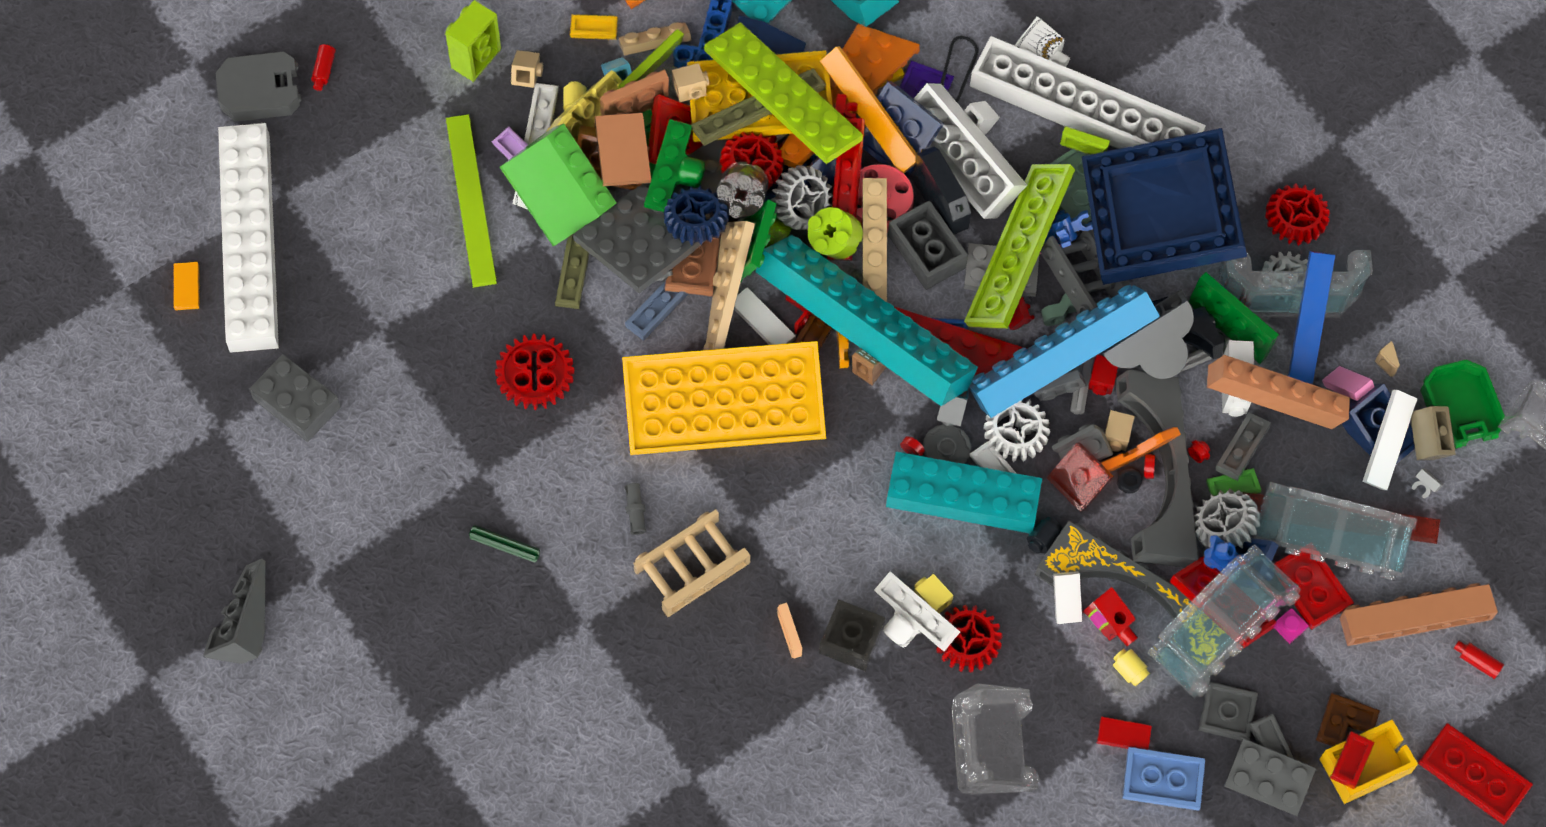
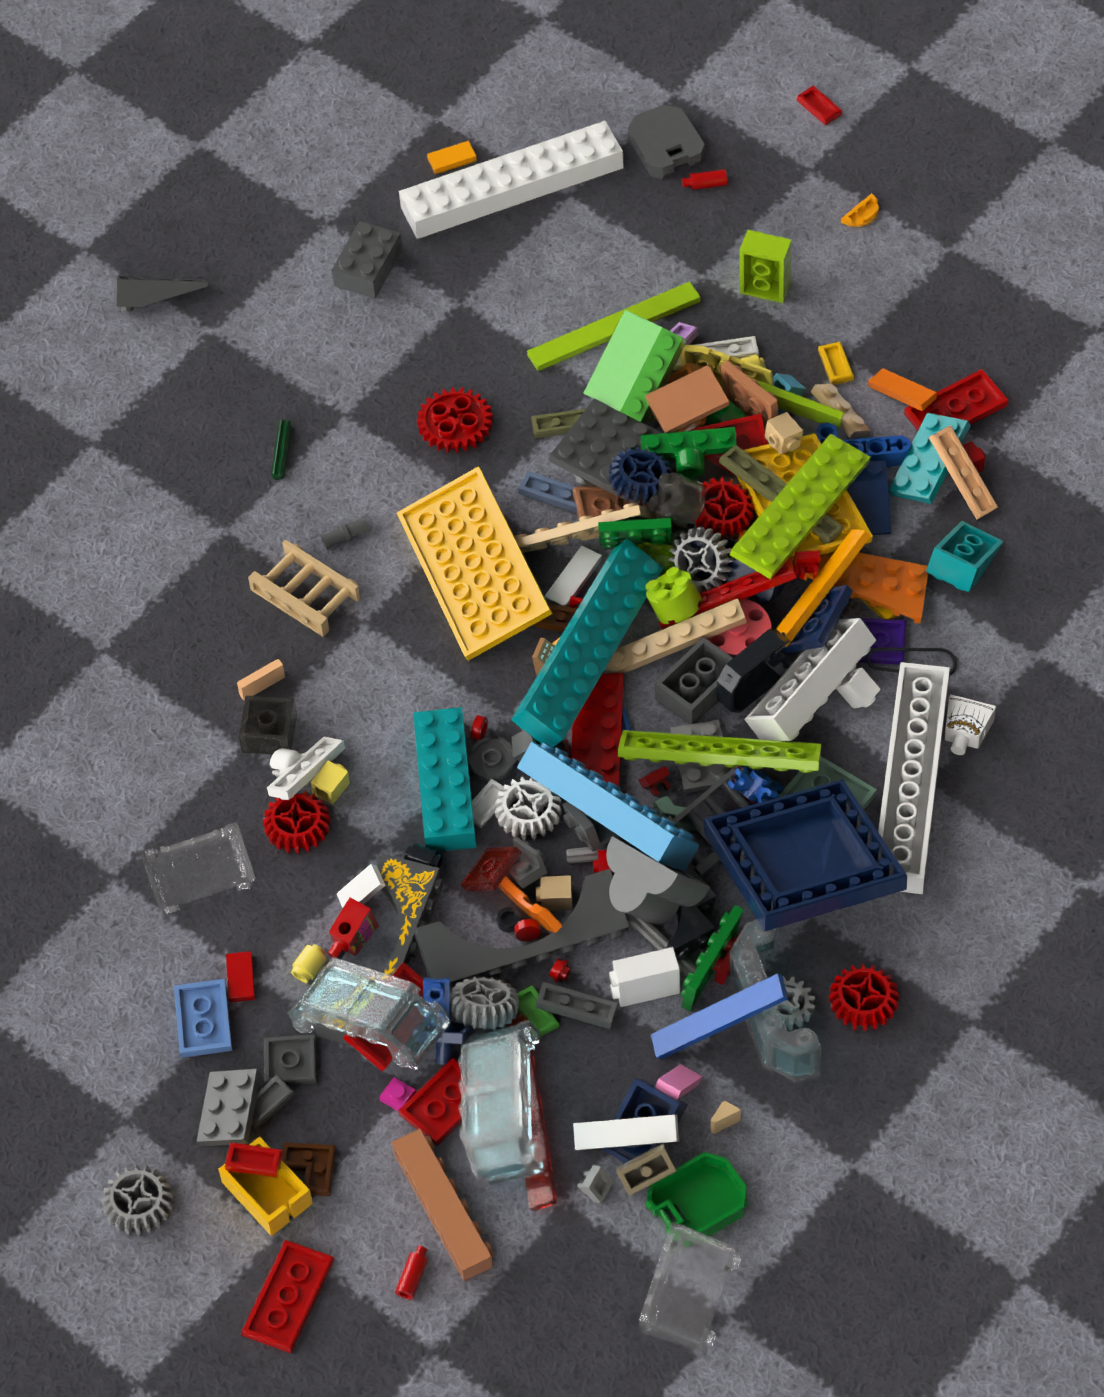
camera: 80 degrees right, 10 degrees down
(526, 69) = (762, 320): tan brick -> none
(1083, 141) = (862, 785): lime tile -> none
(1278, 392) = (626, 1000): nougat brick -> none

